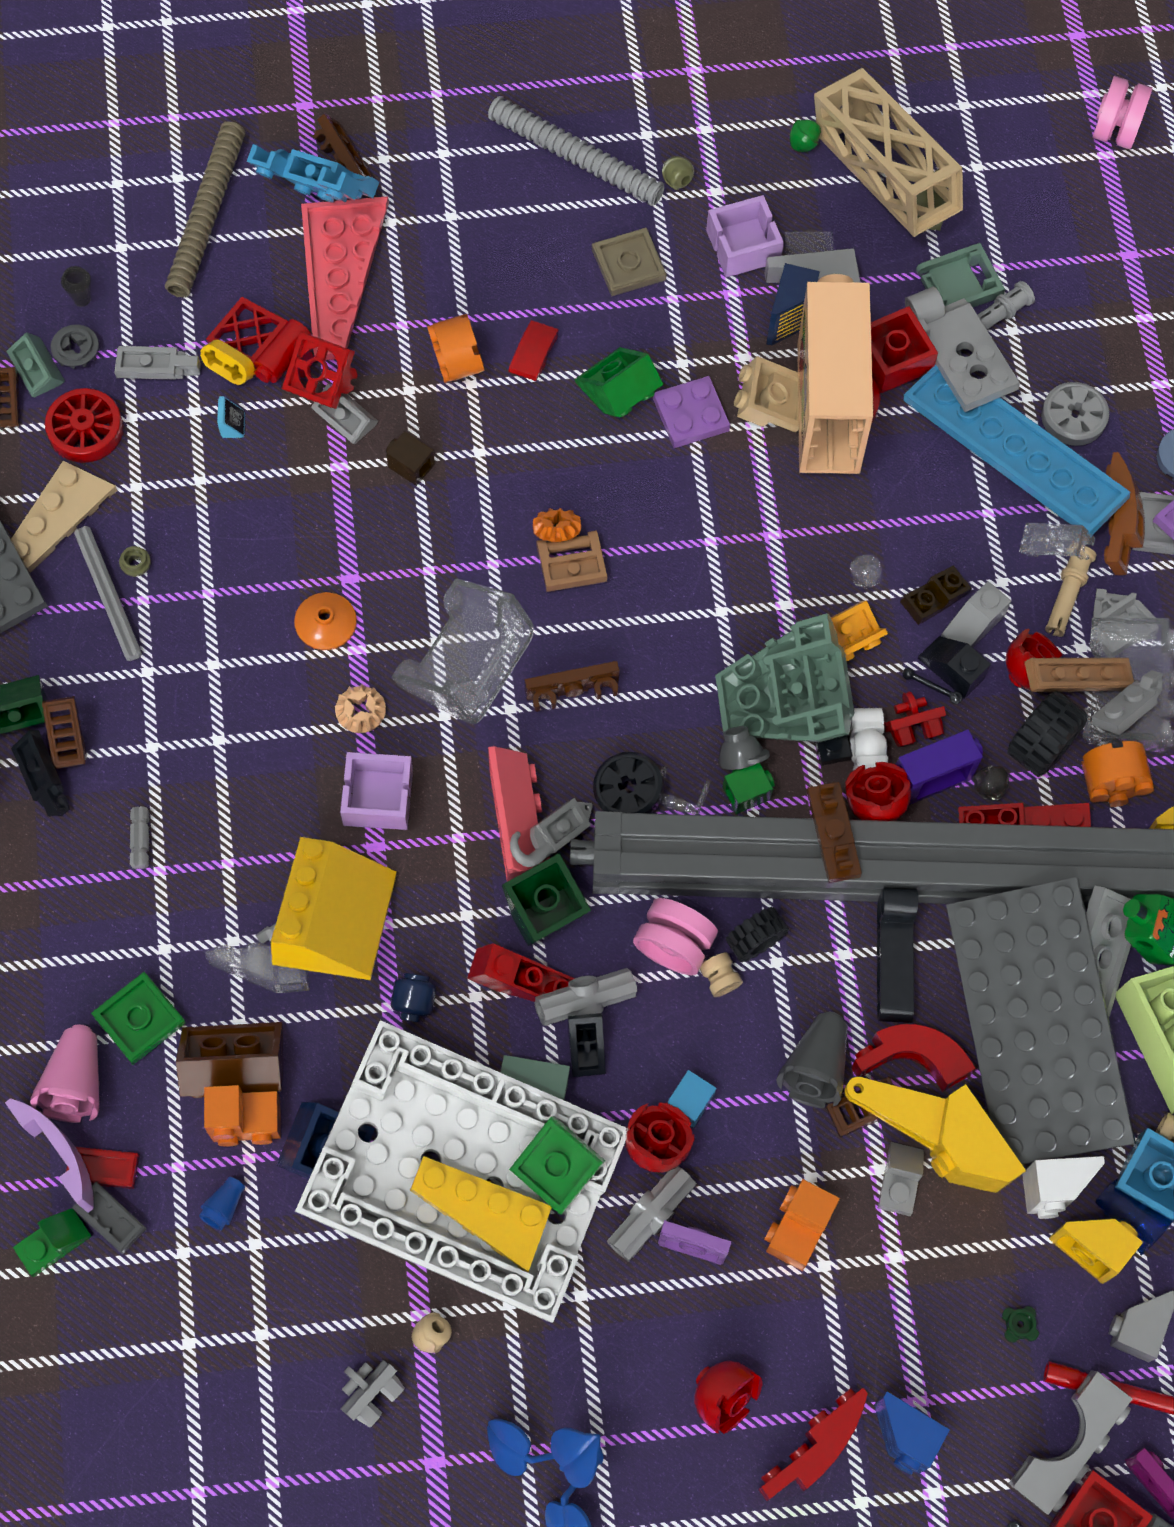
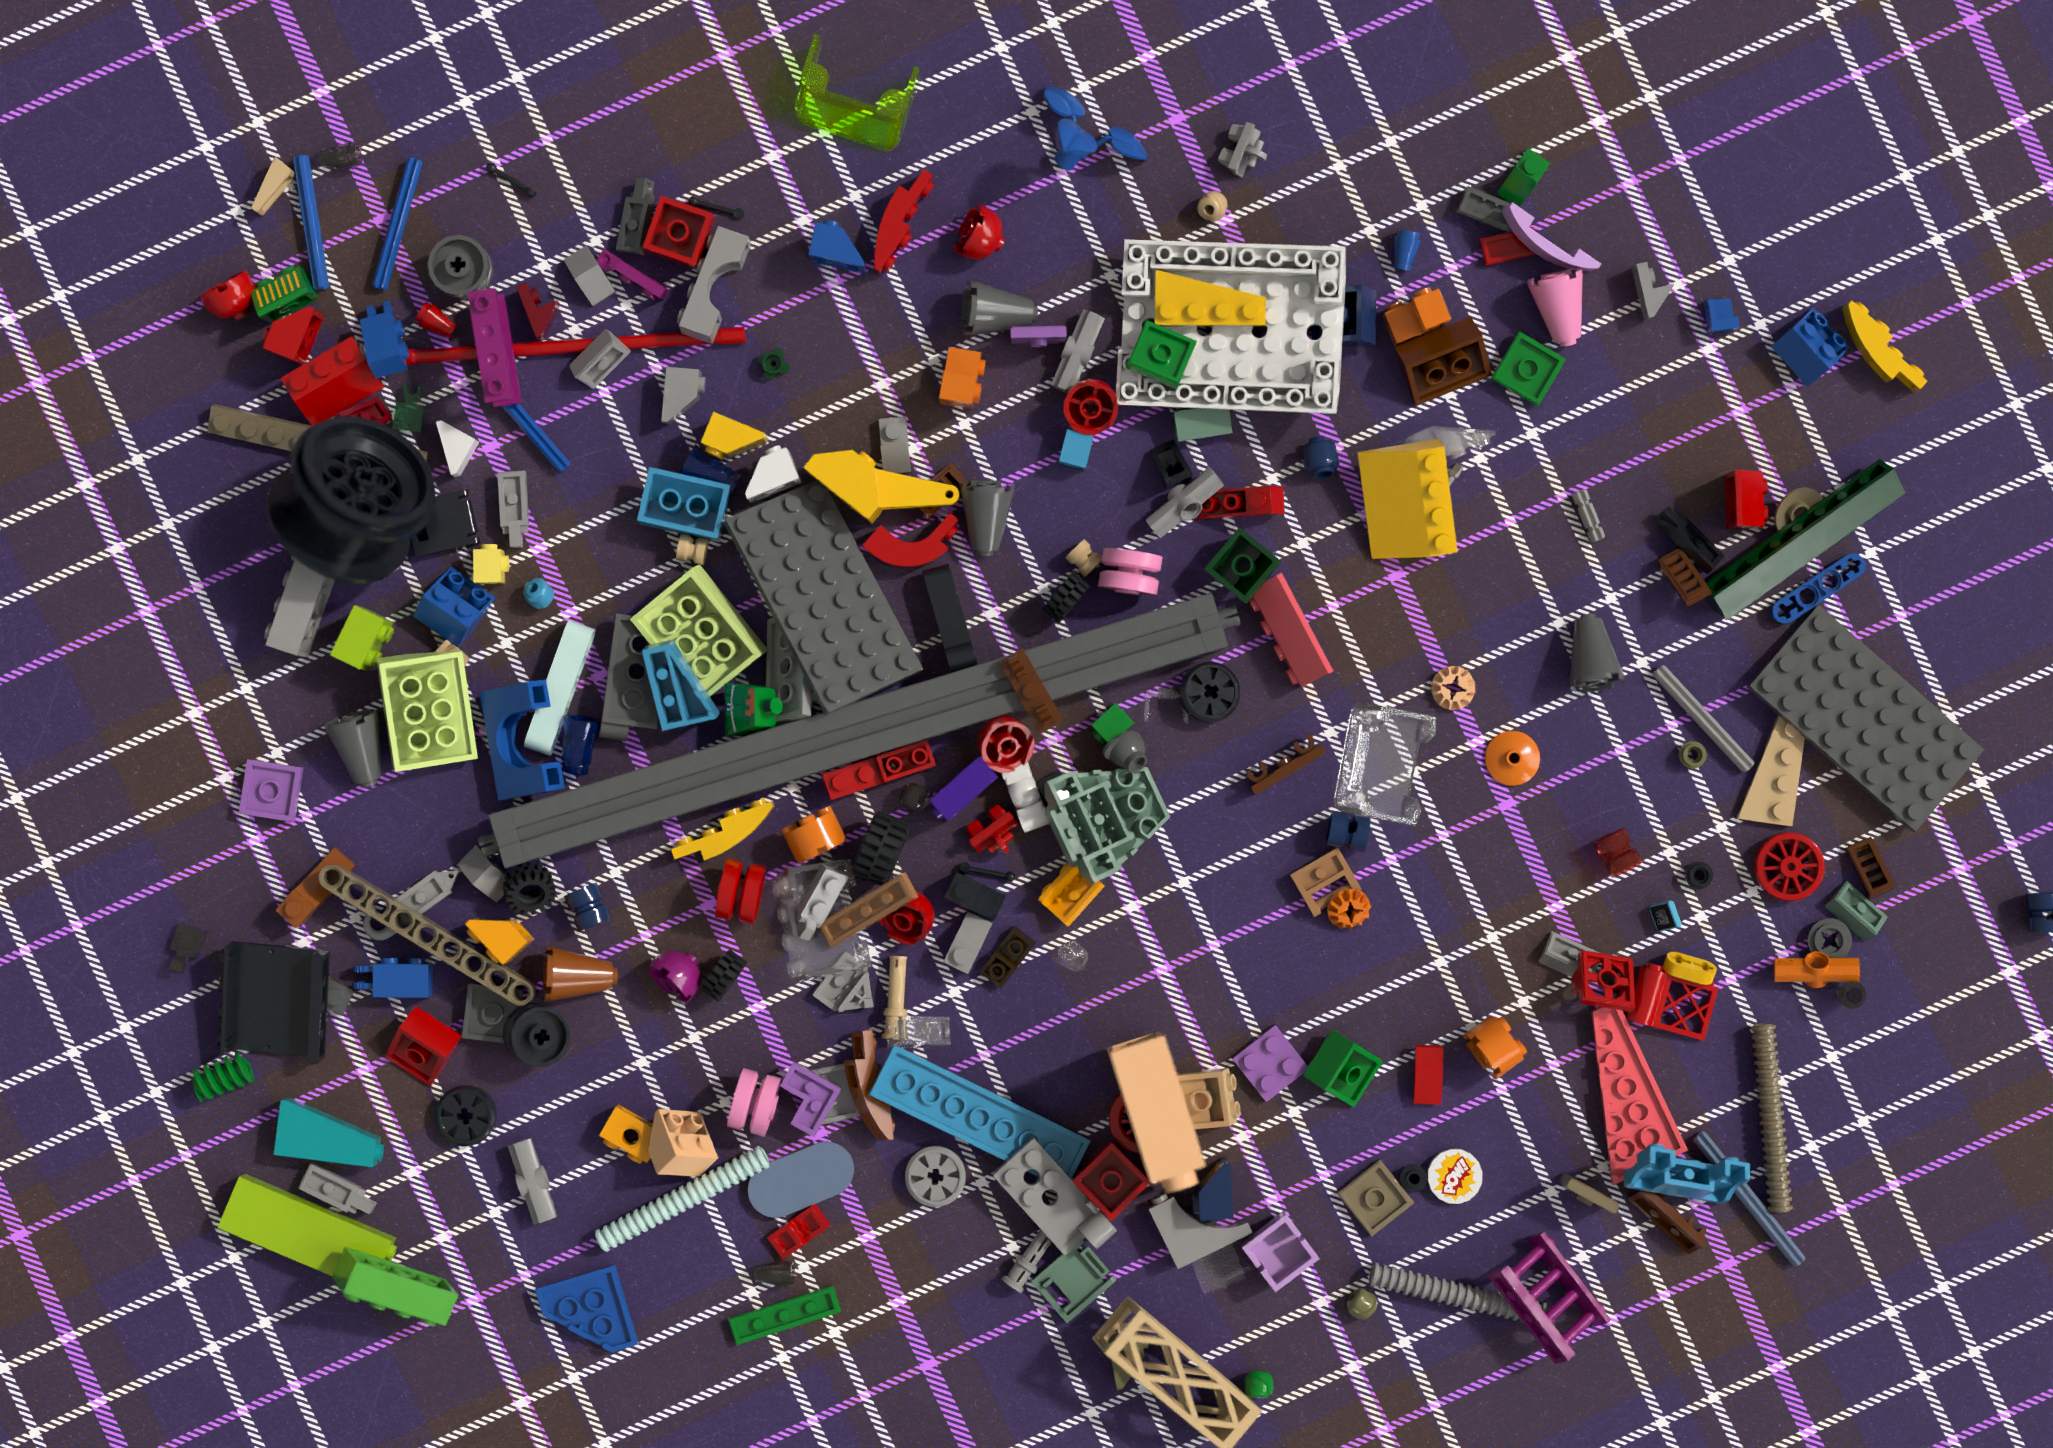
camera: 165 degrees right, 20 degrees up
(83, 313) = (1816, 969): none -> orange piece
(155, 363) = (1753, 946): light grey hinge -> none
(179, 438) = (1707, 875): none -> black plate
(196, 685) = (1593, 657): none -> dark grey cone
(253, 489) = (1618, 853): none -> clear red wheel
(255, 136) = (1753, 1204): none -> sand blue axle
(379, 791) = (1411, 614): lavender piece -> none
(409, 458) = (1497, 930): dark brown brick -> none
(416, 191) = (1588, 1194): none -> dark tan plate
(517, 116) = (1525, 1302): none -> magenta fence
(540, 601) = (1338, 828): none -> dark blue wheel
(542, 255) = (1454, 1176): none -> tile
(553, 832) = (1255, 625): light grey plate -> none
(584, 272) = (1413, 1169): none -> black plate
(736, 1293) = (994, 309): none -> dark grey cone

